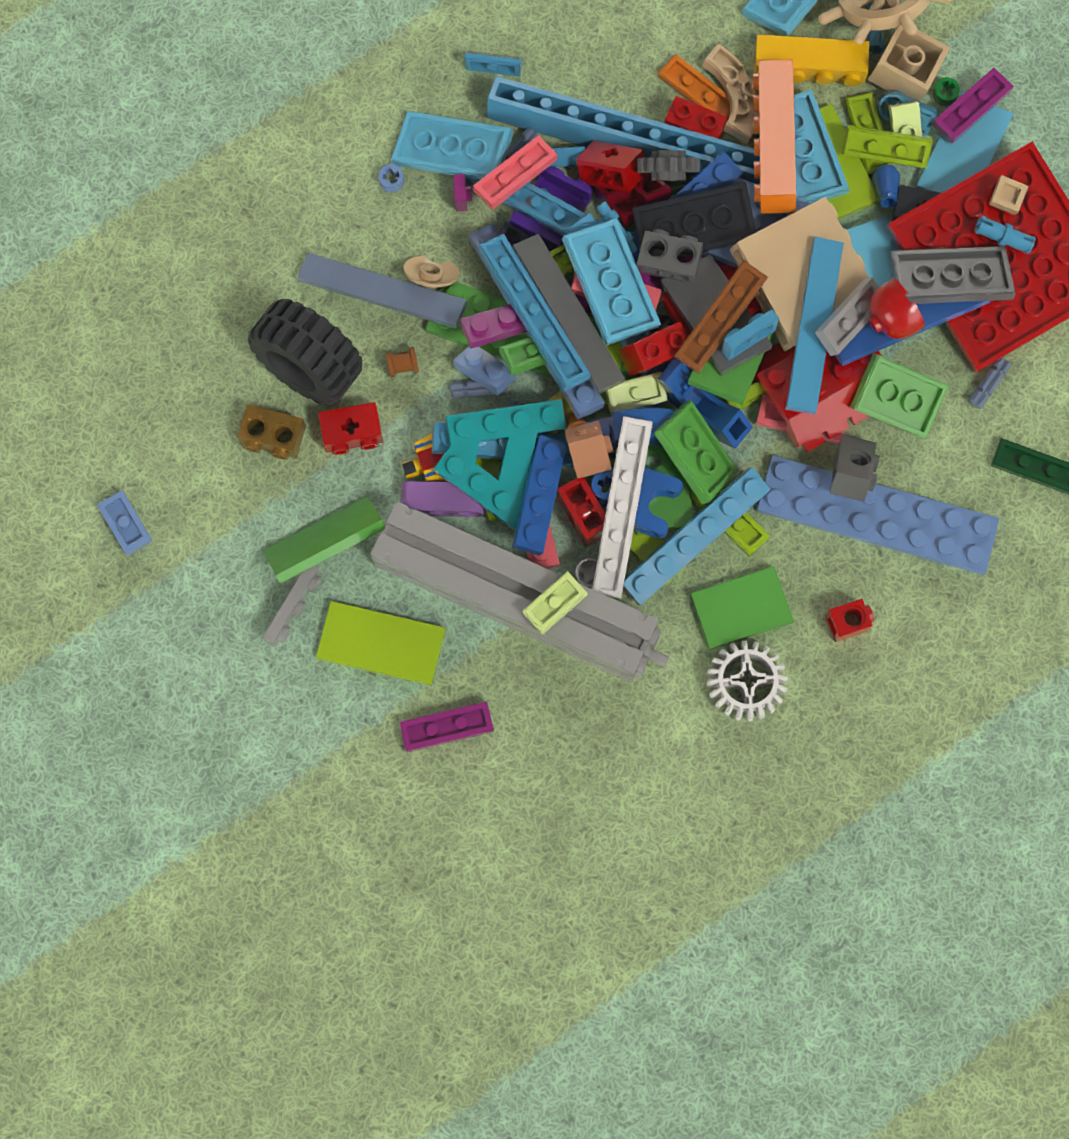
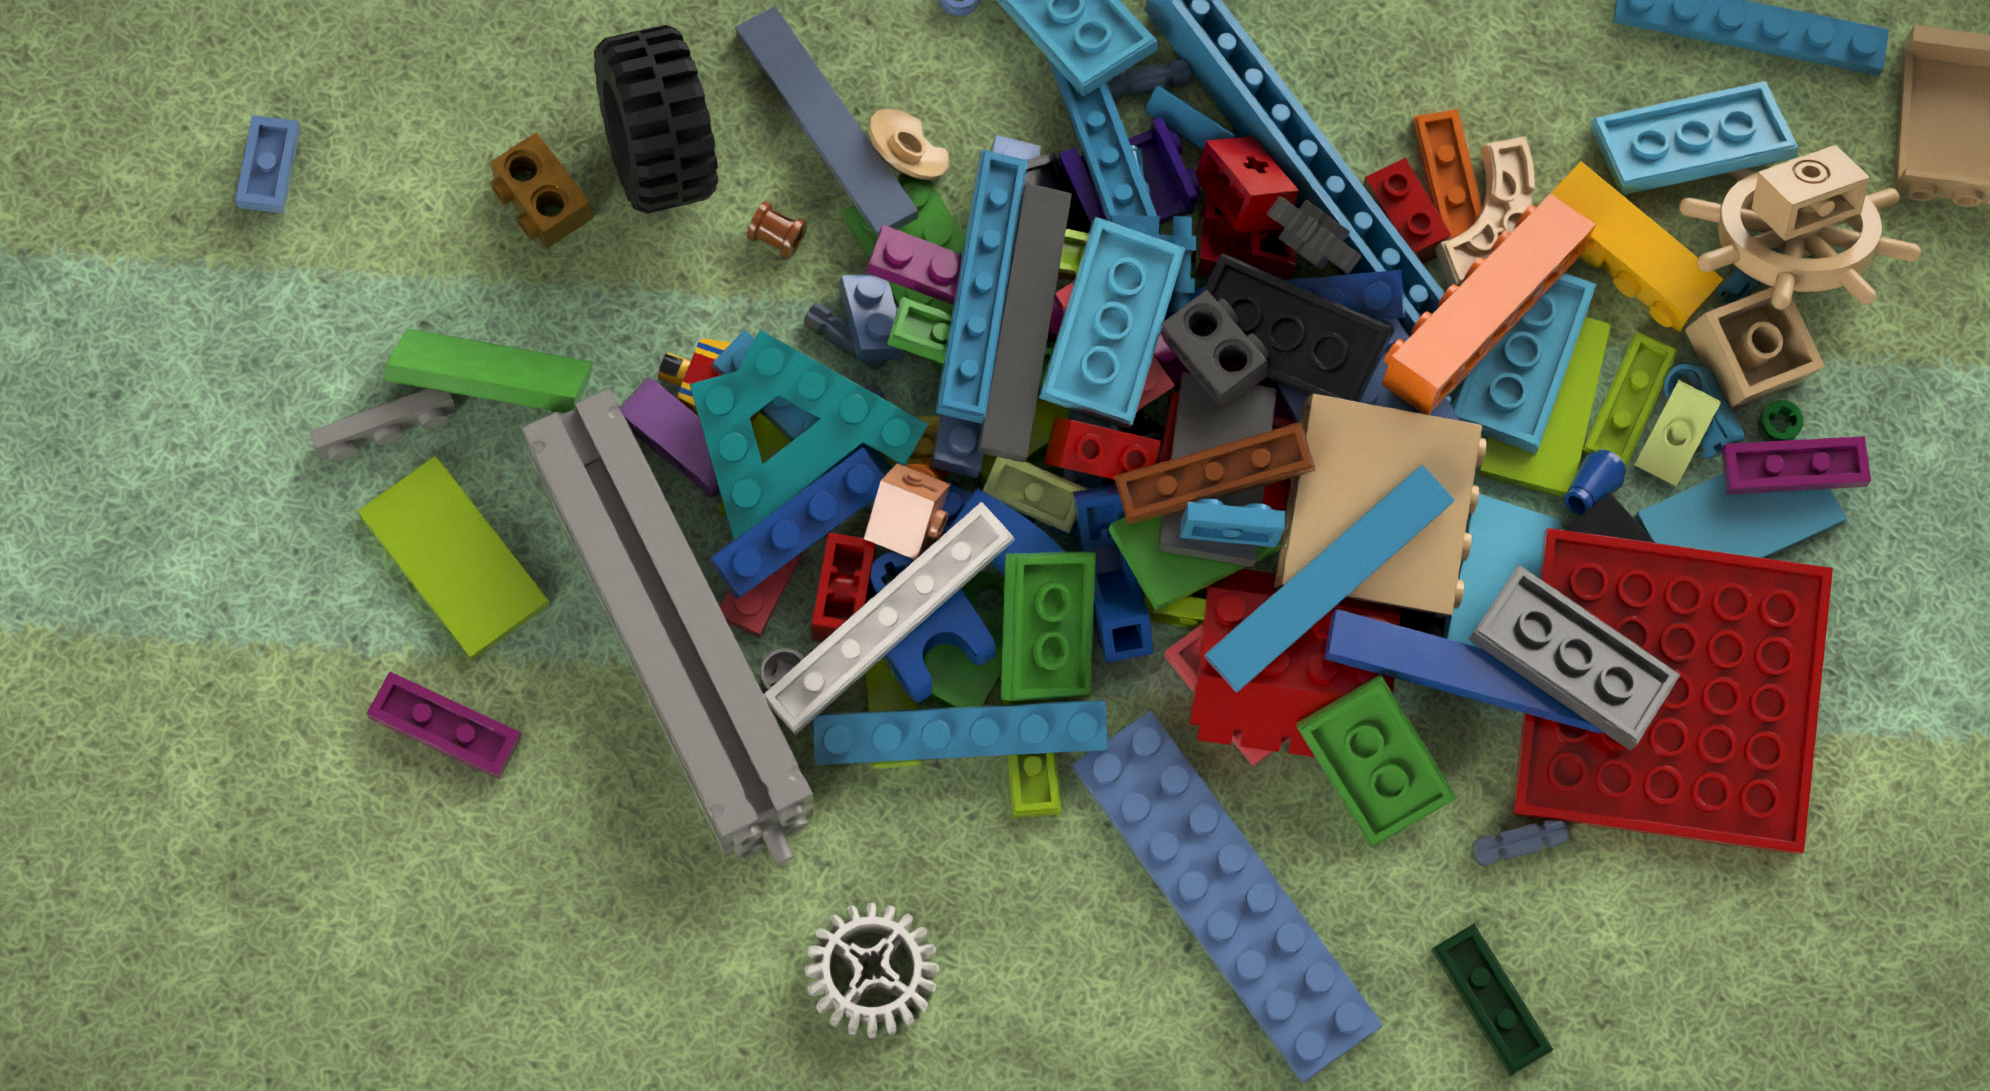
camera: 30 degrees right, 5 degrees down
(336, 425) = (631, 241): red brick -> none
(462, 192) = (1031, 76): magenta plate -> none
(515, 172) = (1112, 98): coral plate -> none
(555, 603) = (695, 666): yellowish green plate -> none
(741, 608) = (946, 874): bright green tile -> none
(838, 625) = (1062, 978): red brick -> none
(847, 318) = (1385, 602): light grey plate -> none
(854, 468) = (1239, 805): dark grey brick -> none
(887, 146) = (1634, 431): lime tile -> none
(894, 312) = (1442, 637): red cylinder -> none
(1004, 234) = (1691, 659): dark azure pin -> none
(1008, 195) = (1738, 611): tan plate -> none

